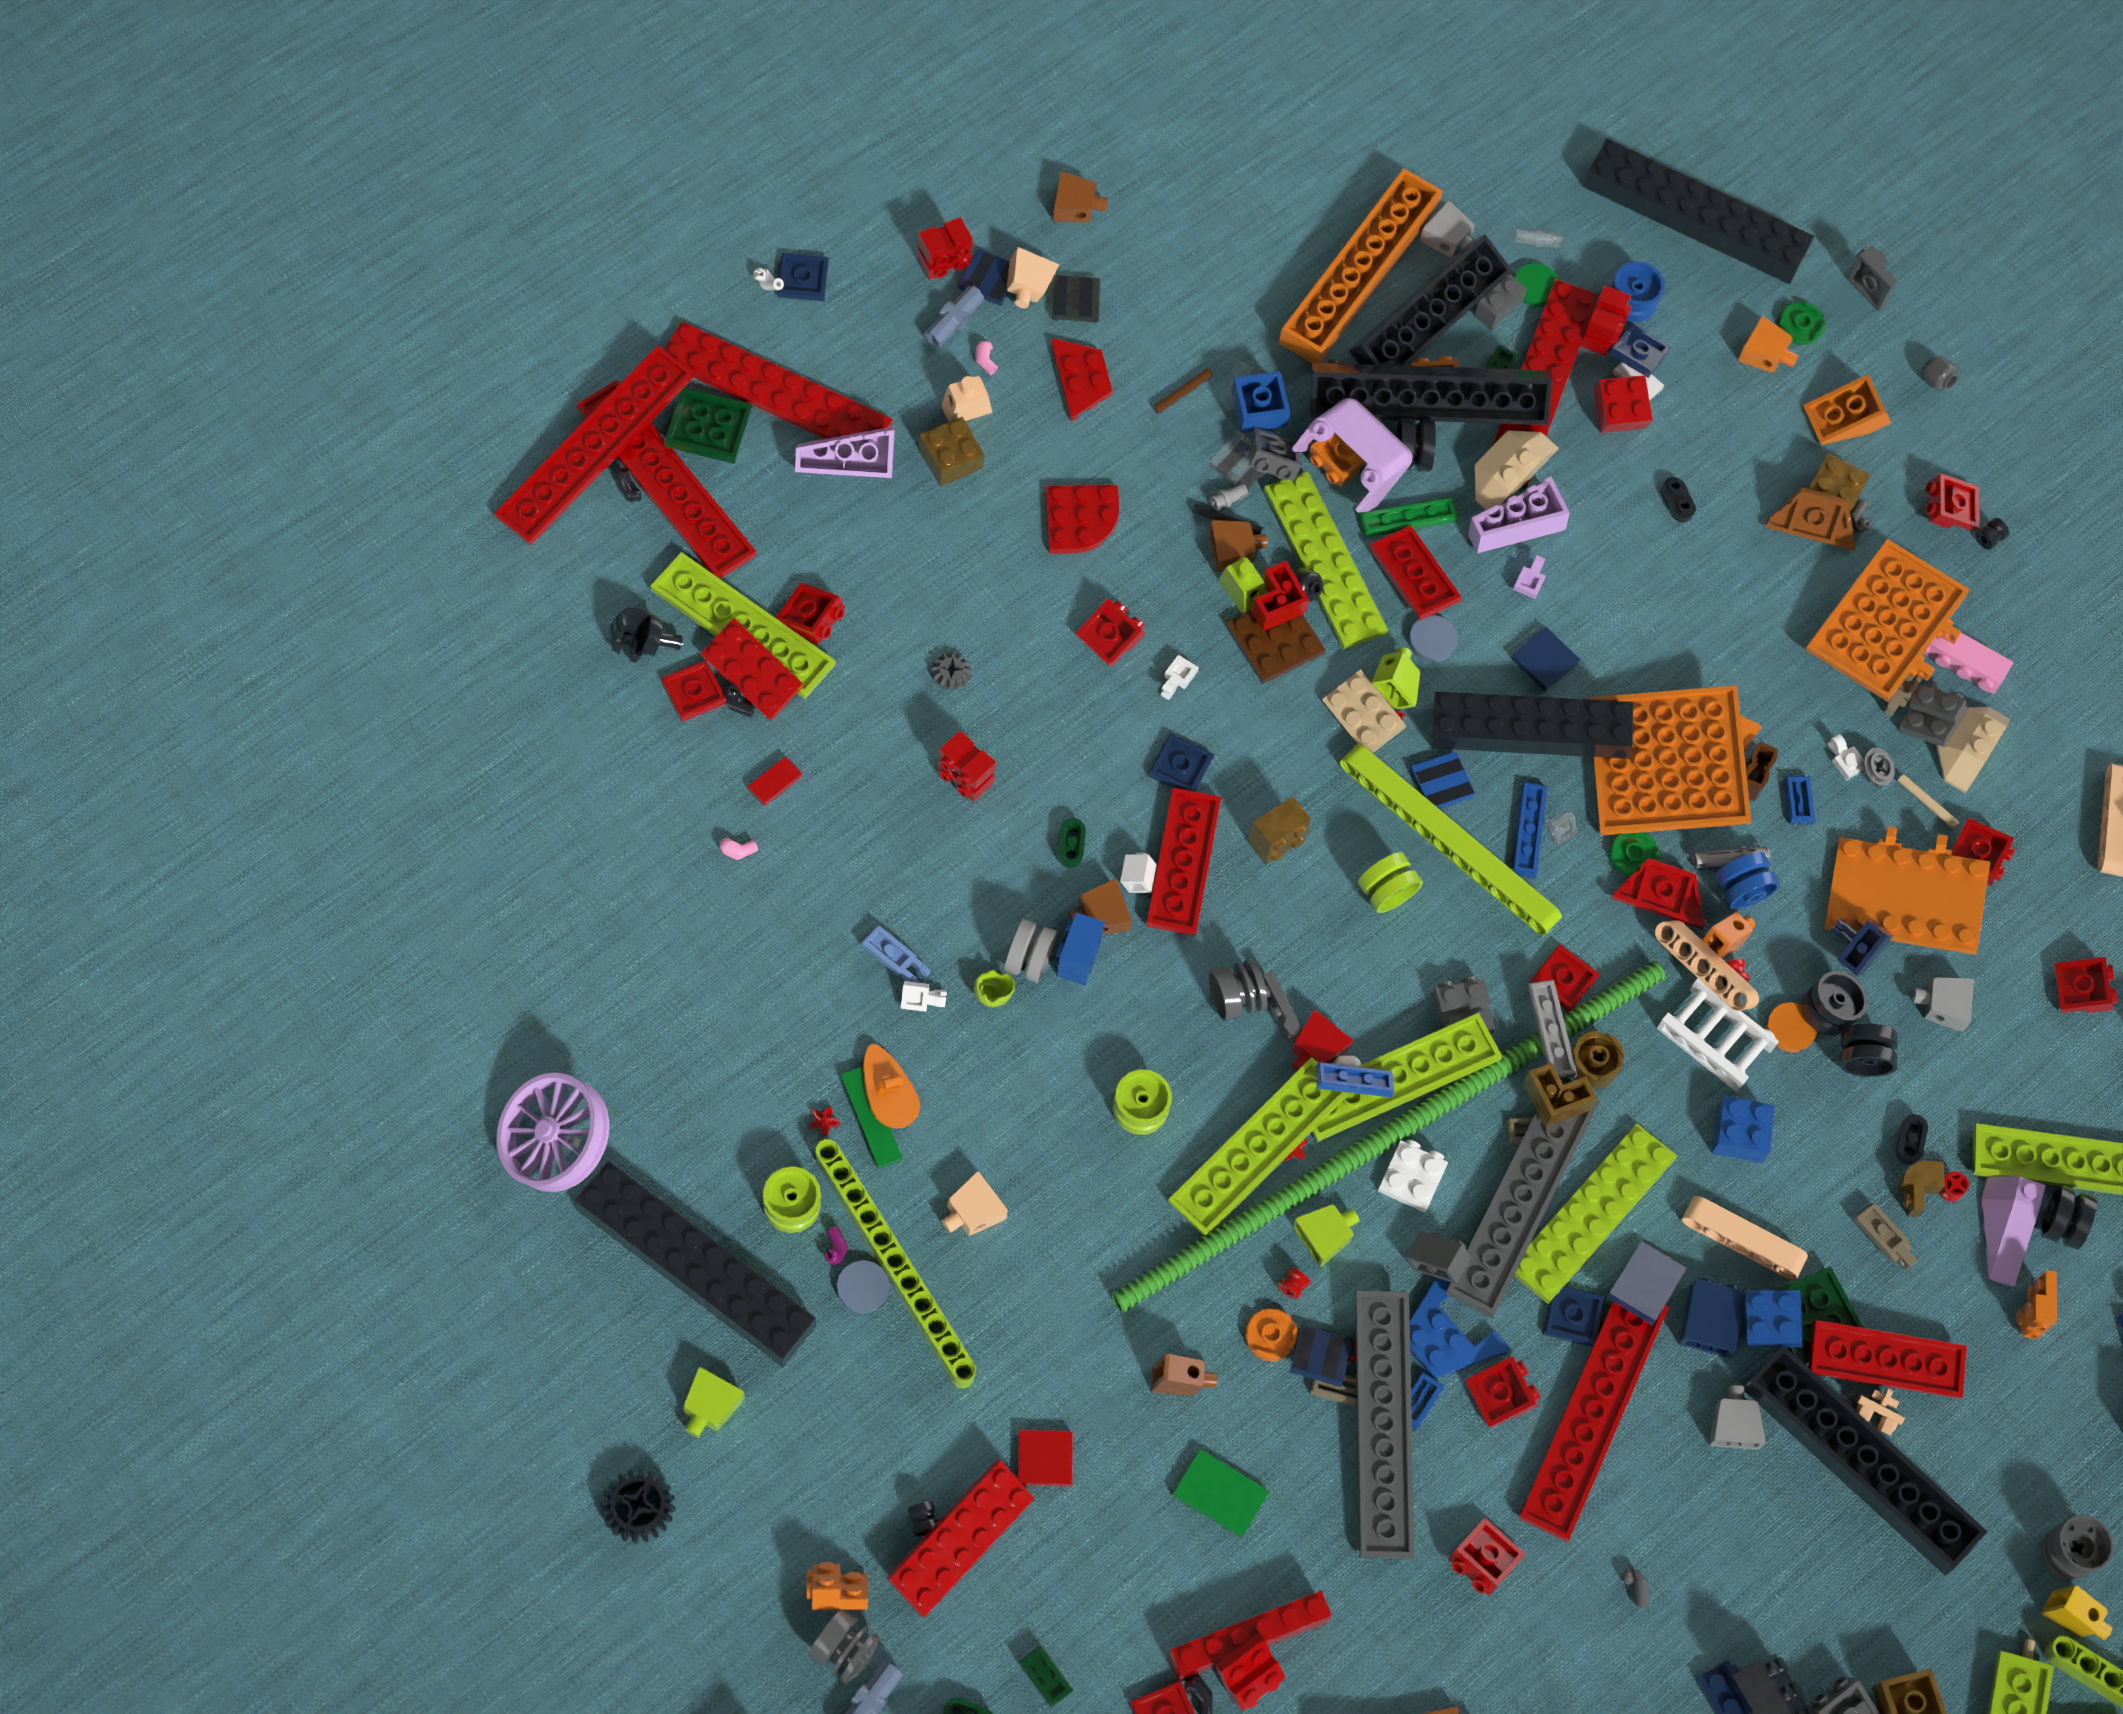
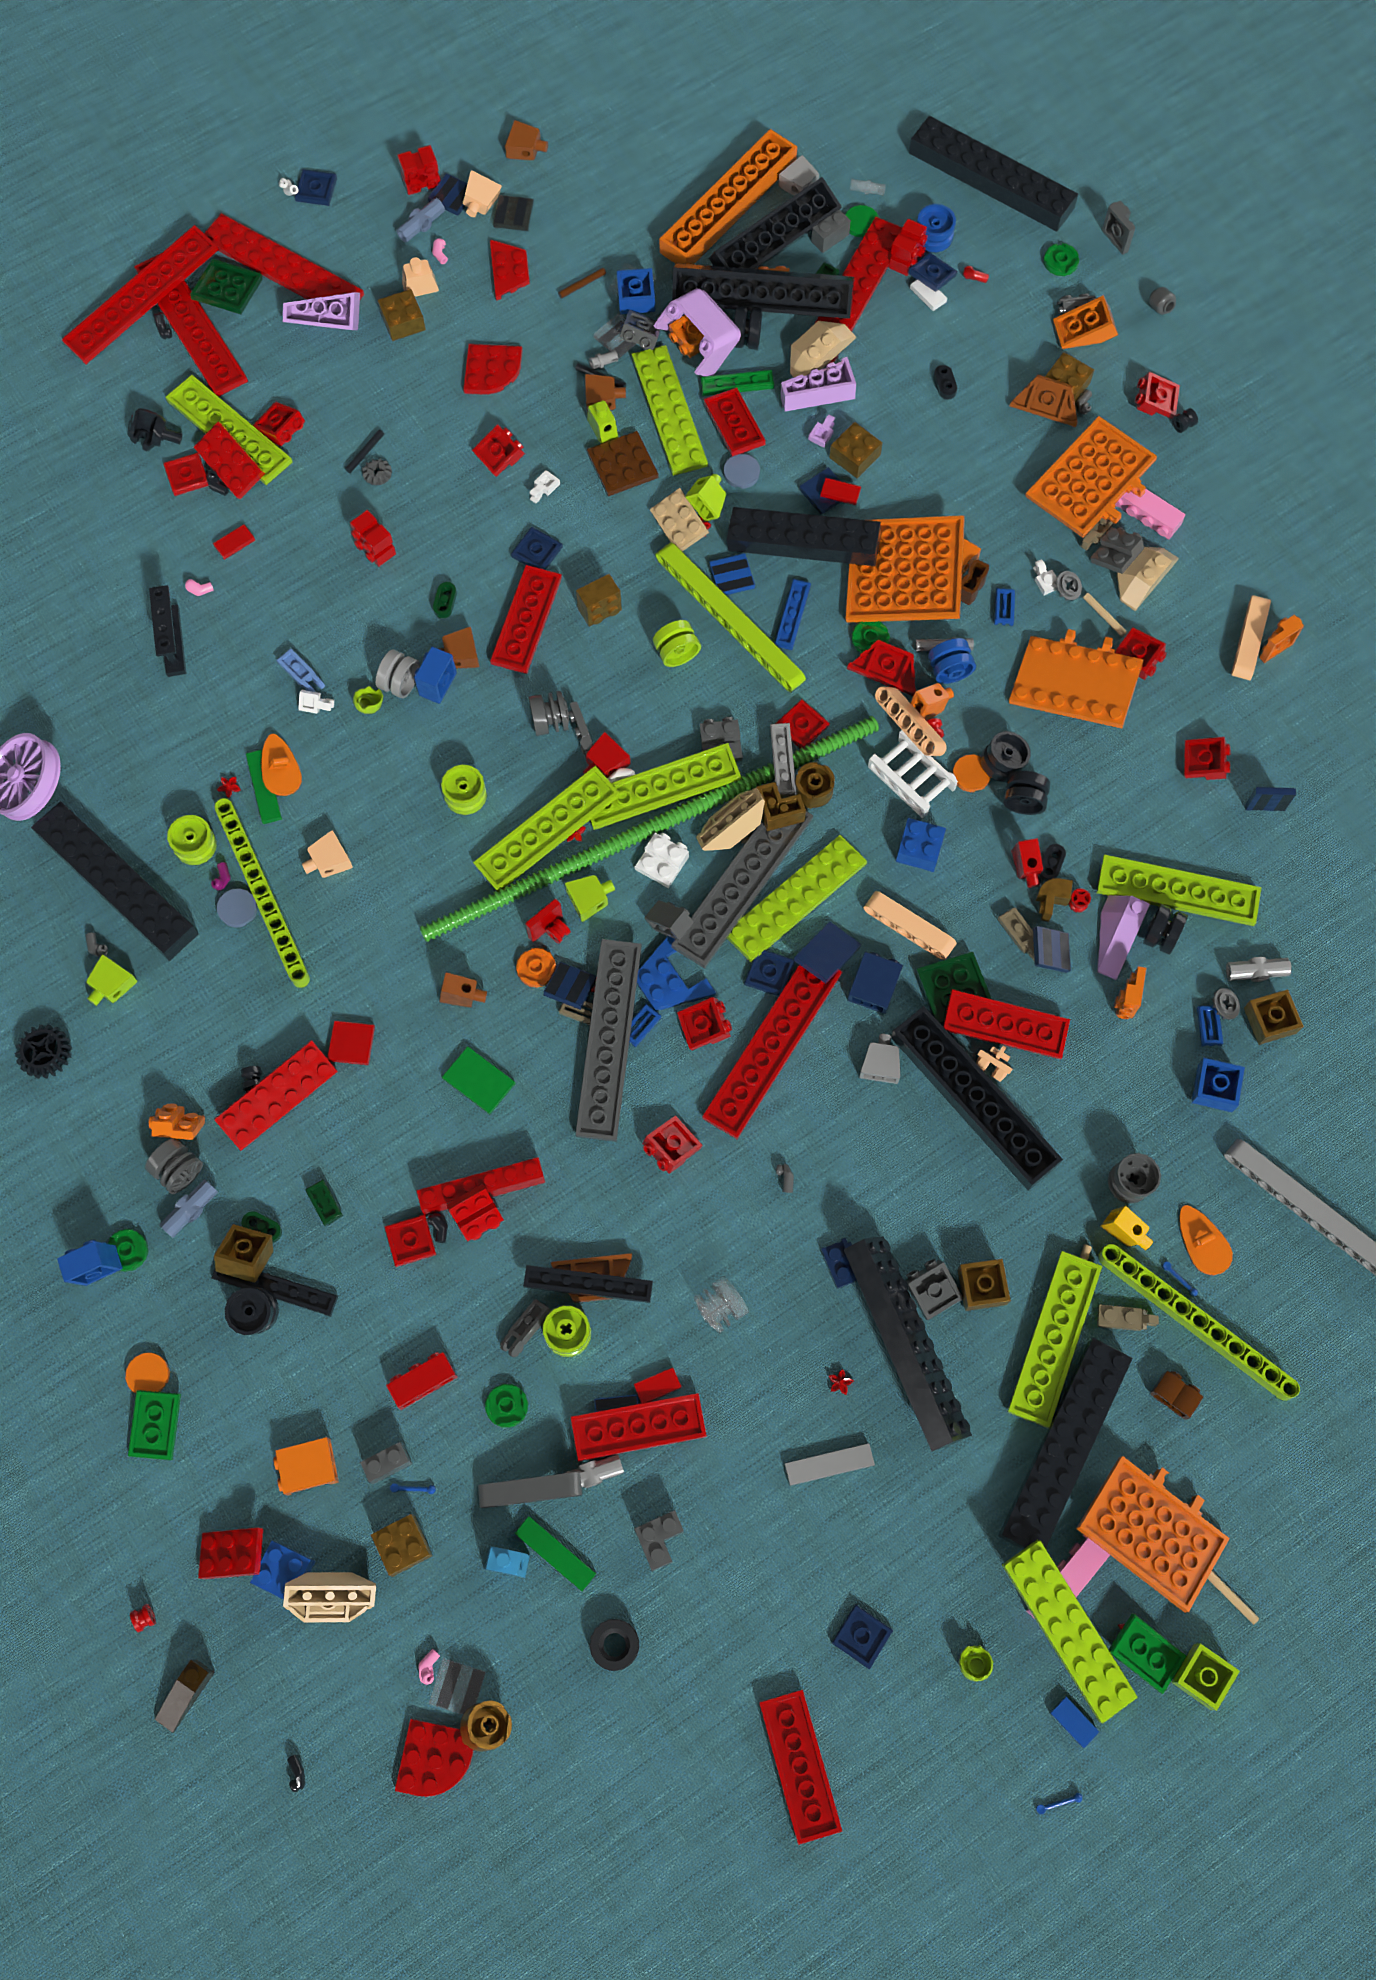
camera: 15 degrees right, 5 degrees up
(681, 1358) = (93, 947): none -> dark grey arm
(713, 914) = (167, 631): none -> black fence
(929, 643) = (364, 451): none -> black bar
(1138, 873) = (489, 624): white brick -> none
(1276, 1271) = (543, 919): none -> red tile
(1283, 599) = (627, 433): red brick -> none
(1310, 582) = (649, 425): black head -> none
(1354, 1079) = (624, 784): blue tile -> none
(1500, 1117) = (732, 821): none -> tan wedge
(1562, 827) = (817, 613): clear tile -> none
(1568, 659) = (840, 491): none -> red tile
(1578, 601) = (855, 450): none -> pearl gold brick
(1622, 404) = (911, 308): red brick -> none
(1689, 350) = (970, 273): none -> red arm
(1768, 347) = (1031, 274): orange torso -> none
(1774, 1319) = (920, 986): blue brick -> none
(1820, 385) = (1068, 303): none -> dark grey hinge
(1862, 945) = (1034, 714): dark blue brick -> none
(1883, 1140) = (1028, 861): none -> red torso
(1929, 1255) = (1051, 949): none -> tile
(1947, 1001) = (1095, 762): light grey torso -> none

